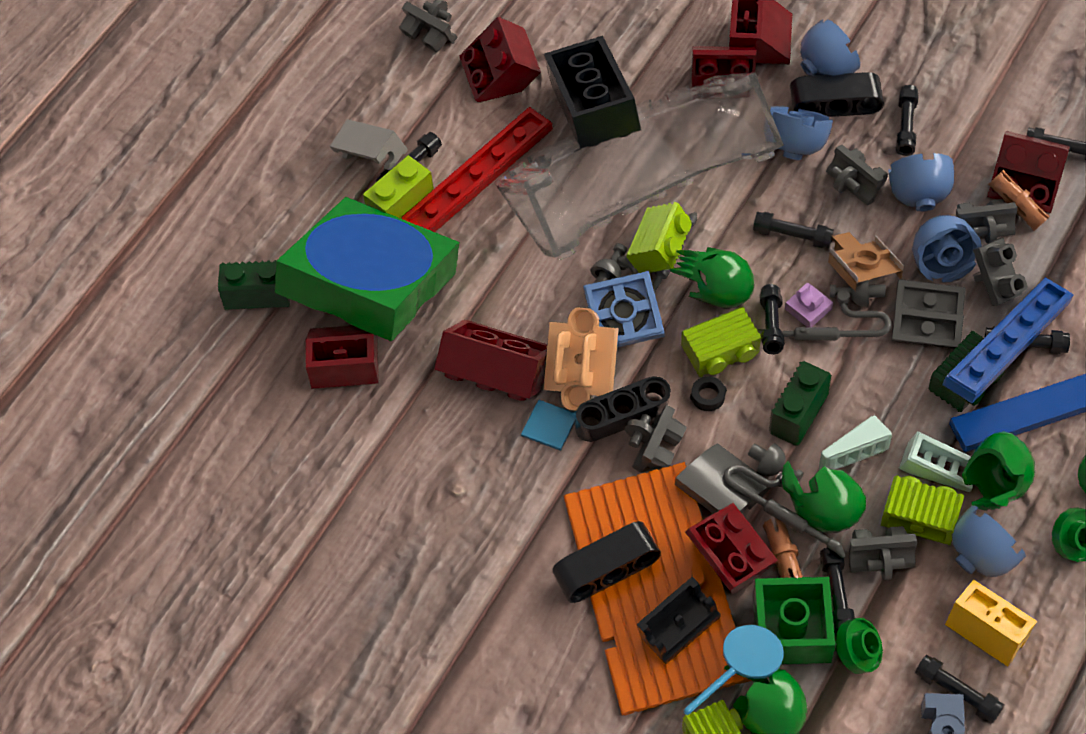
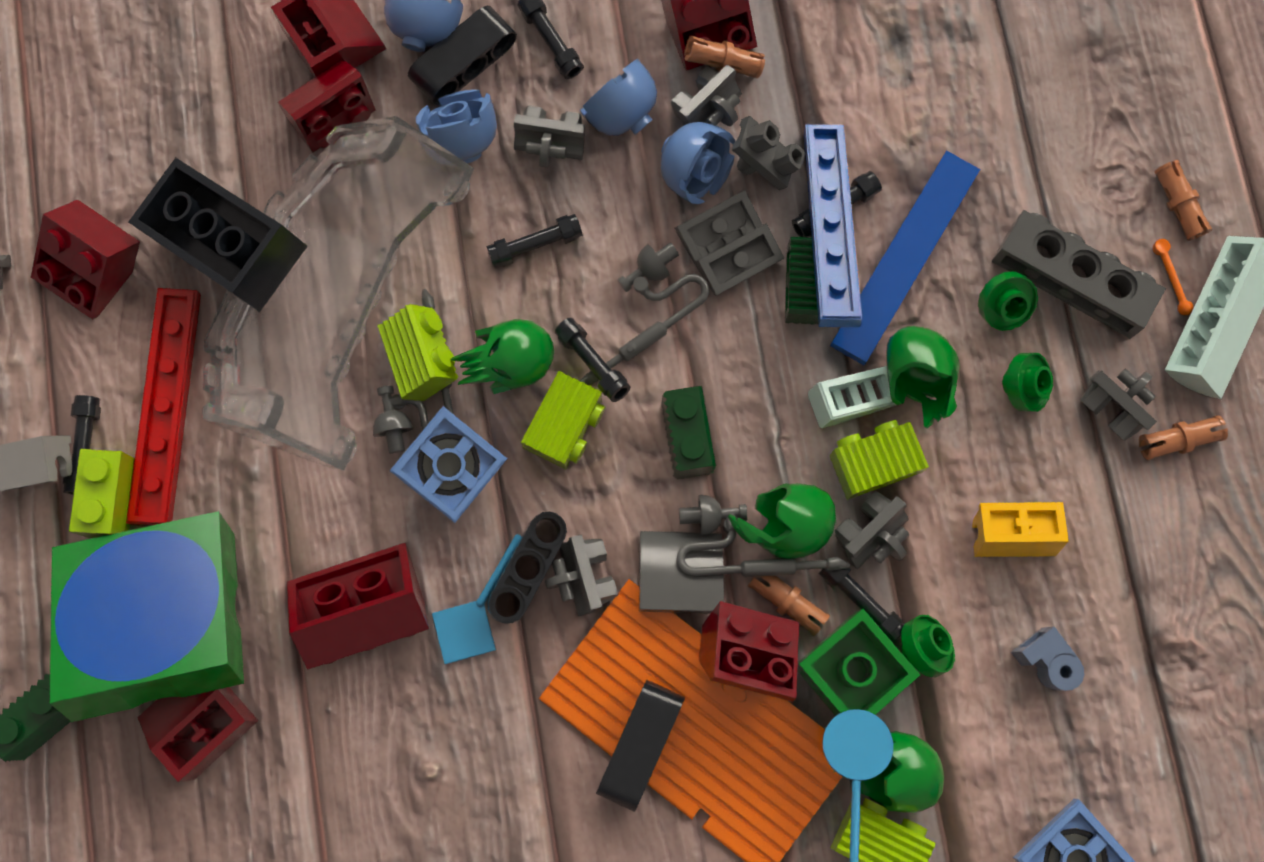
camera: 45 degrees left, 20 degrees up
(580, 358) = (447, 549): light nougat piece -> none
(678, 620) = (757, 756): black hinge -> none
(708, 404) = (586, 467): black piece -> none
(808, 305) = (611, 314): lavender tile -> none
(860, 443) = (774, 427): light aqua slope -> none
(862, 261) = (629, 232): medium nougat piece -> none
(984, 545) = (962, 458): medium blue cylinder -> none
(987, 706) = (1069, 612): black bar -> none

